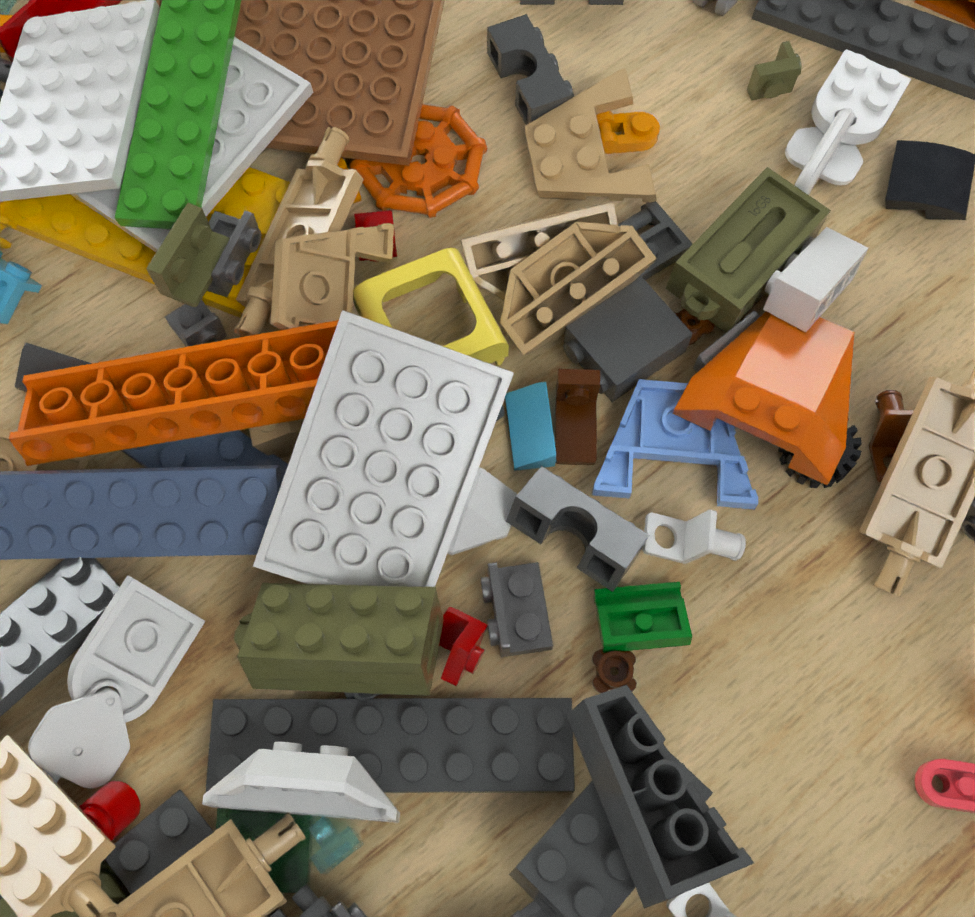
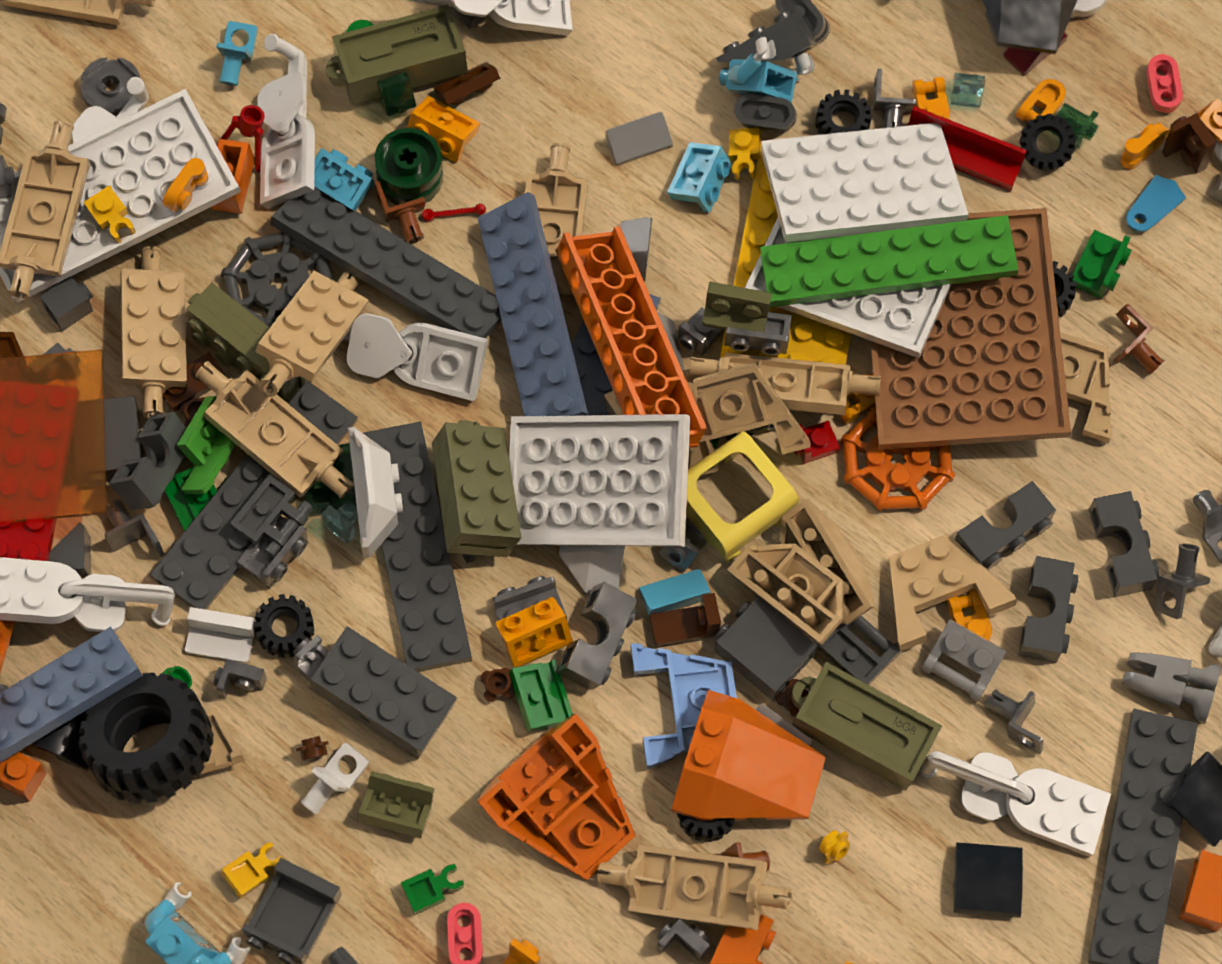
camera: 75 degrees right, 0 degrees up
(112, 808) = (335, 377): red brick -> none
(462, 637) = (491, 575): red bracket -> none
(552, 606) = (534, 631): none -> light orange bracket
(611, 42) = (1051, 582): none -> dark grey arch
(653, 808) = (395, 701): dark grey wedge -> none
(667, 135) = (968, 650): none -> light grey plate
(693, 538) = (609, 723): white bracket -> none
(748, 108) = (1017, 714): none -> flat silver bracket
(775, 77) = (1055, 732): olive bracket -> none
(779, 843) = (396, 804): none -> olive bracket
(789, 624) = (561, 800): none -> orange wedge
(813, 278) = (849, 780): white brick -> none
(881, 319) = (834, 846): none -> yellow plate
(893, 827) = (426, 890): none -> green plate

